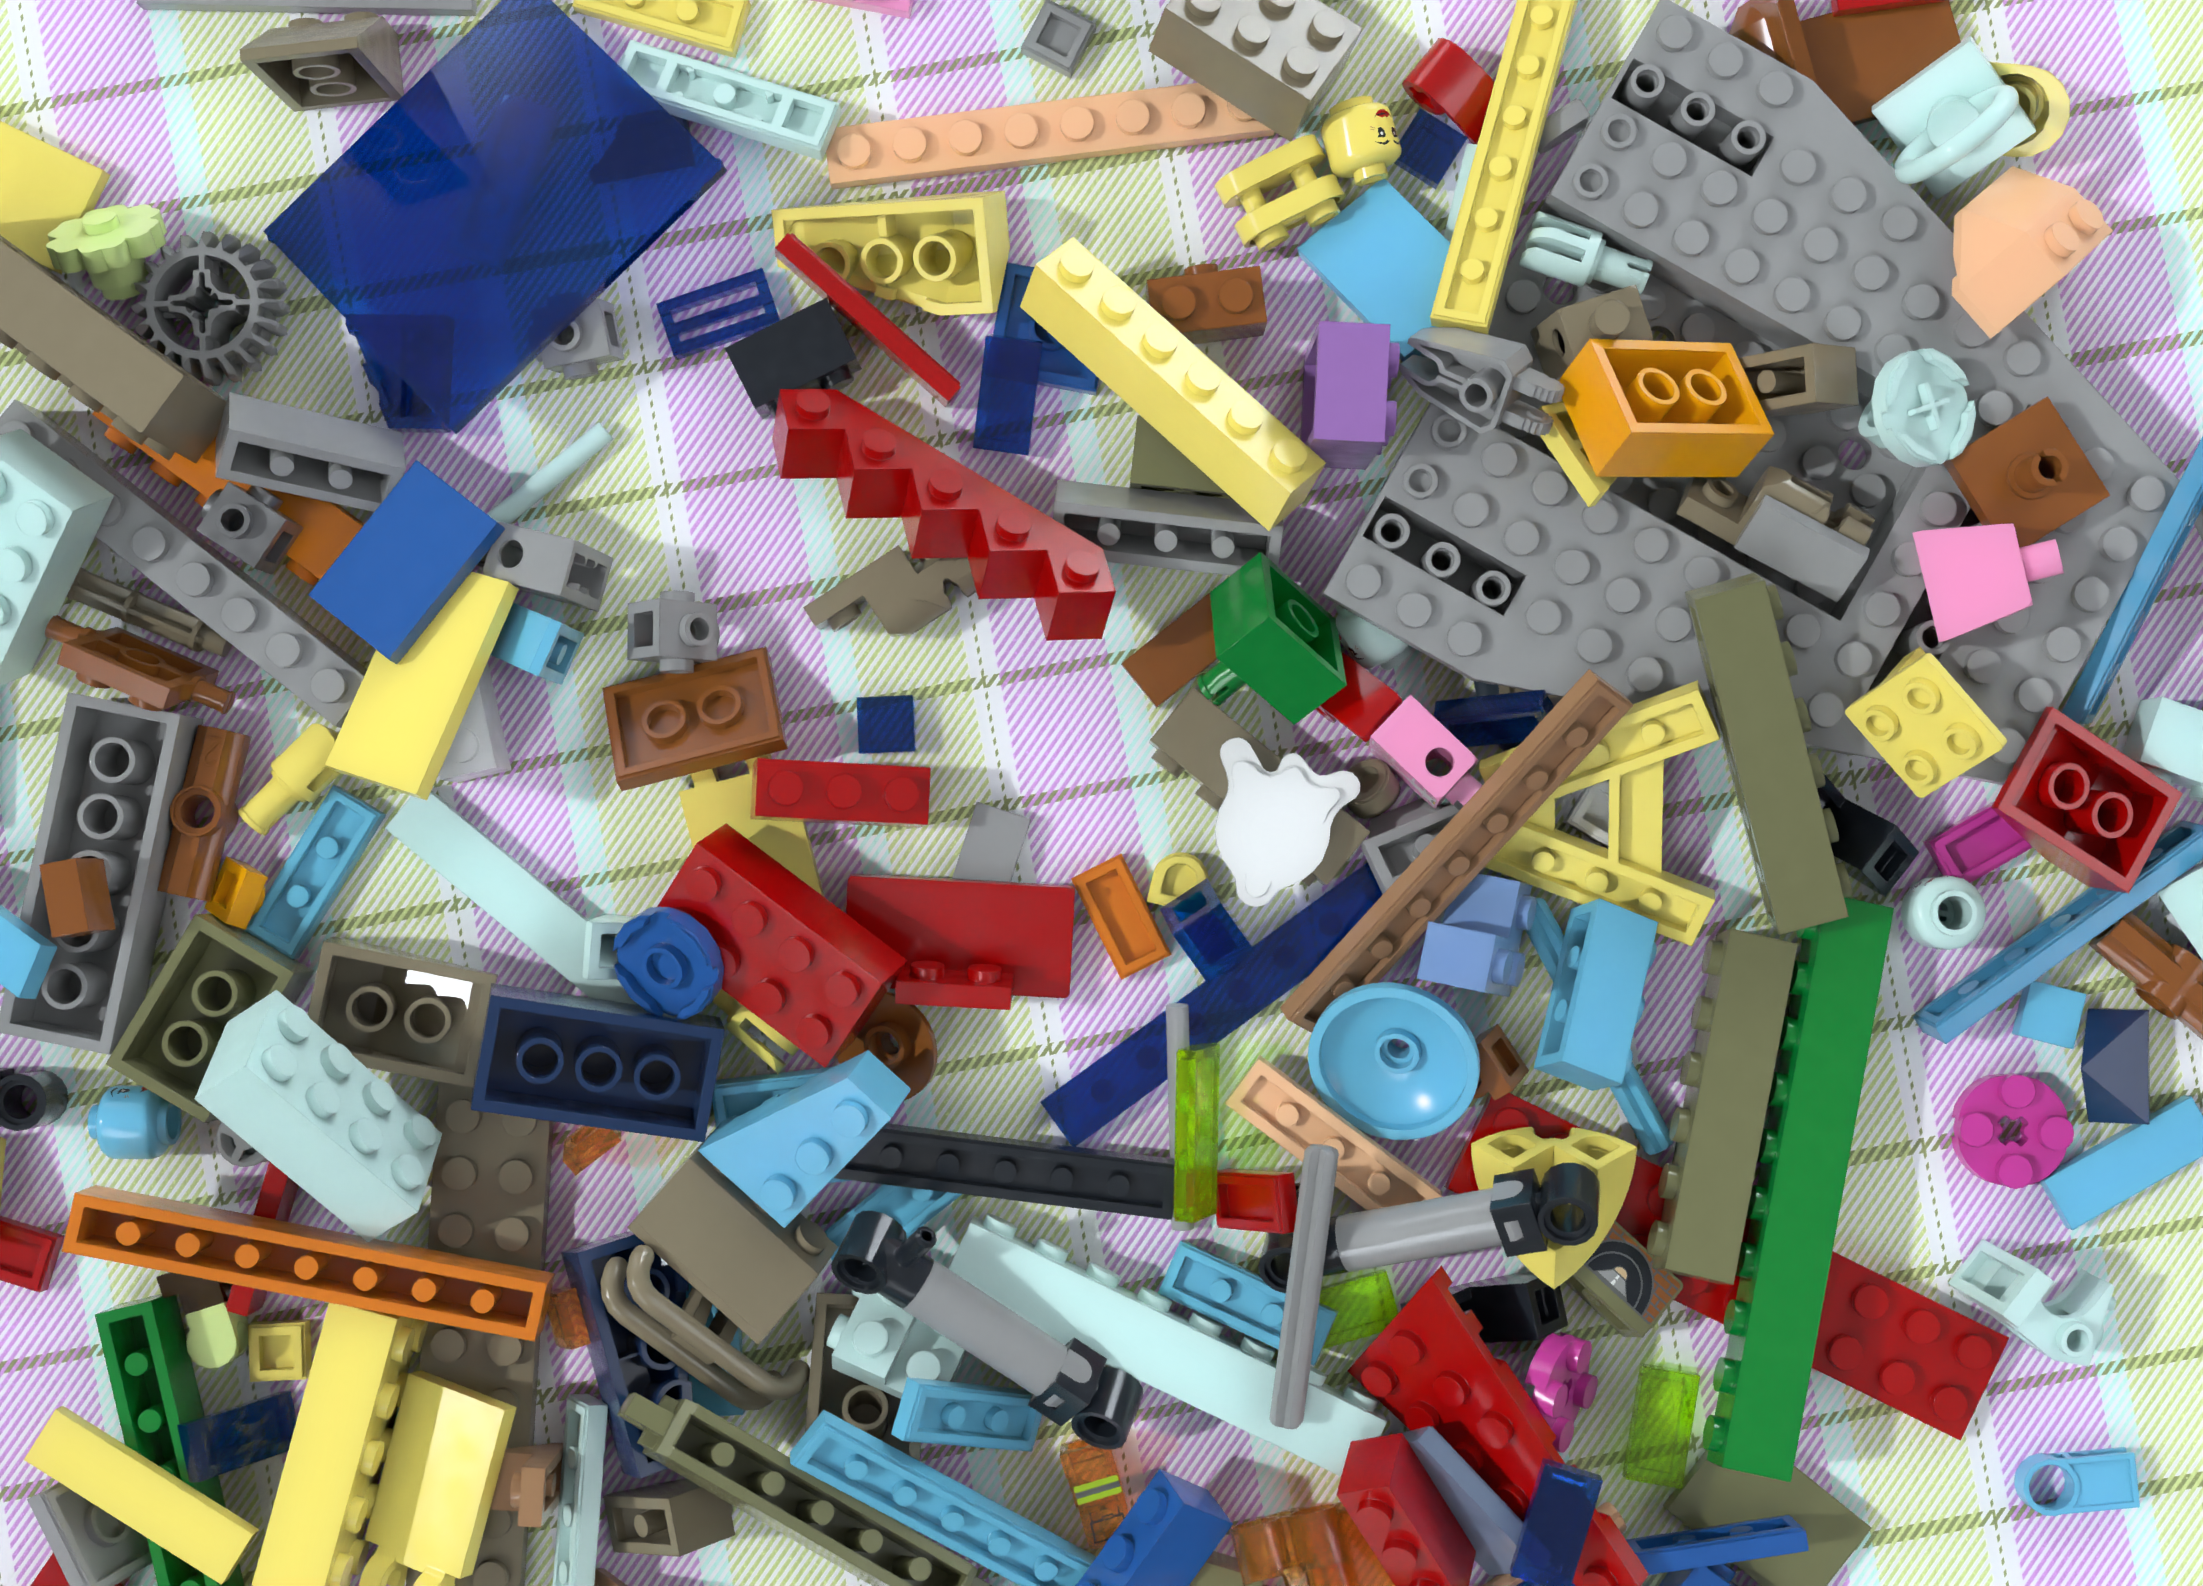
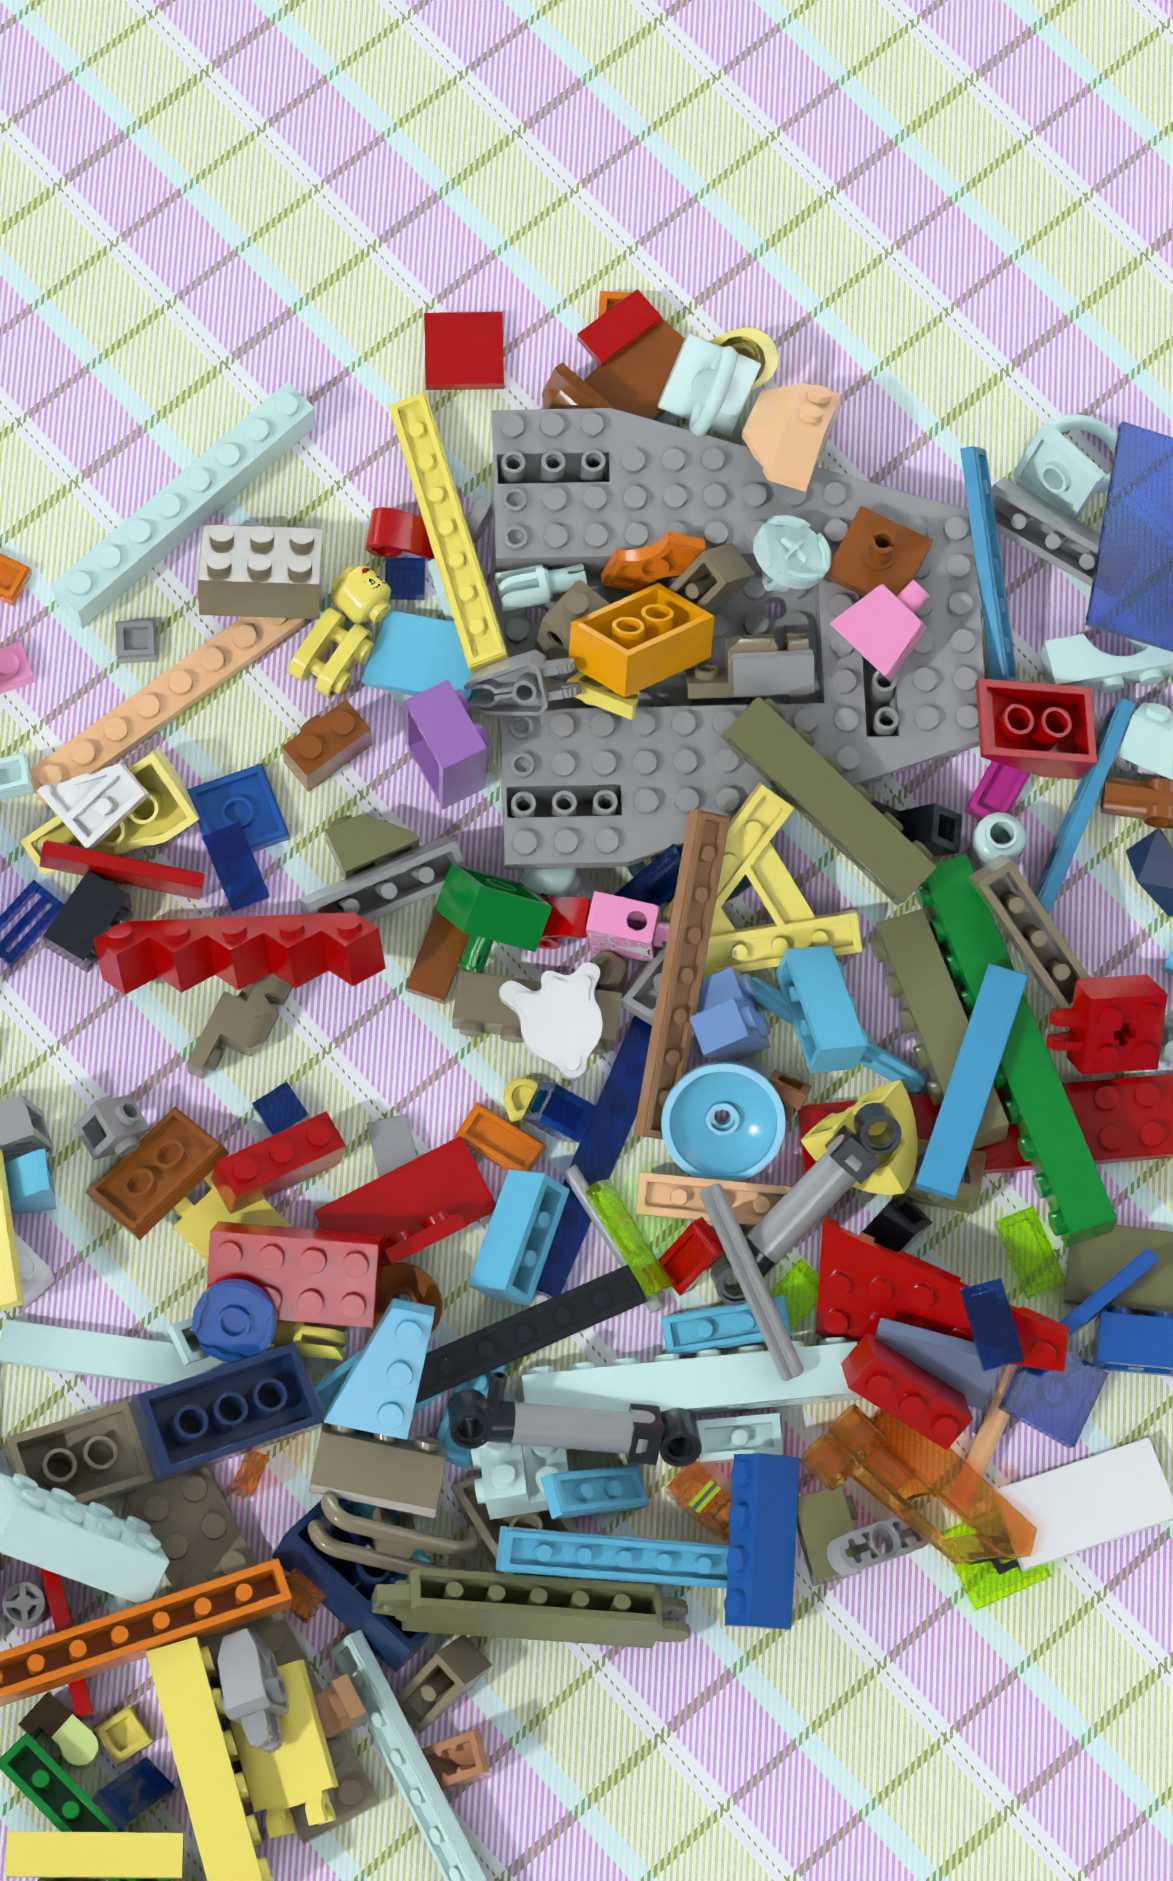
camera: 40 degrees left, 15 degrees down
(428, 1417) = (253, 1689): none -> light grey hinge
(879, 219) = (95, 802): none -> white wing
(1068, 1052) = (519, 1237): none -> medium azure brick
(1171, 383) = (335, 796): light yellow brick -> none
(1184, 1442) = (739, 1435): none -> light aqua plate
(1562, 1383) = (947, 1250): dark pink plate -> none
(1591, 813) = (751, 908): white tile -> none
(1721, 1207) = (971, 1082): none -> dark azure tile
(1763, 318) = (639, 567): none -> orange tile
(1913, 1063) = (1030, 929): none -> dark tan brick
(1925, 724) = (907, 728): light yellow bracket -> none
(1938, 1231) = (1112, 1024): none -> red hinge
(2044, 1130) = (1129, 925): dark pink plate -> none
(2049, 1014) = (1103, 867): medium azure tile -> none

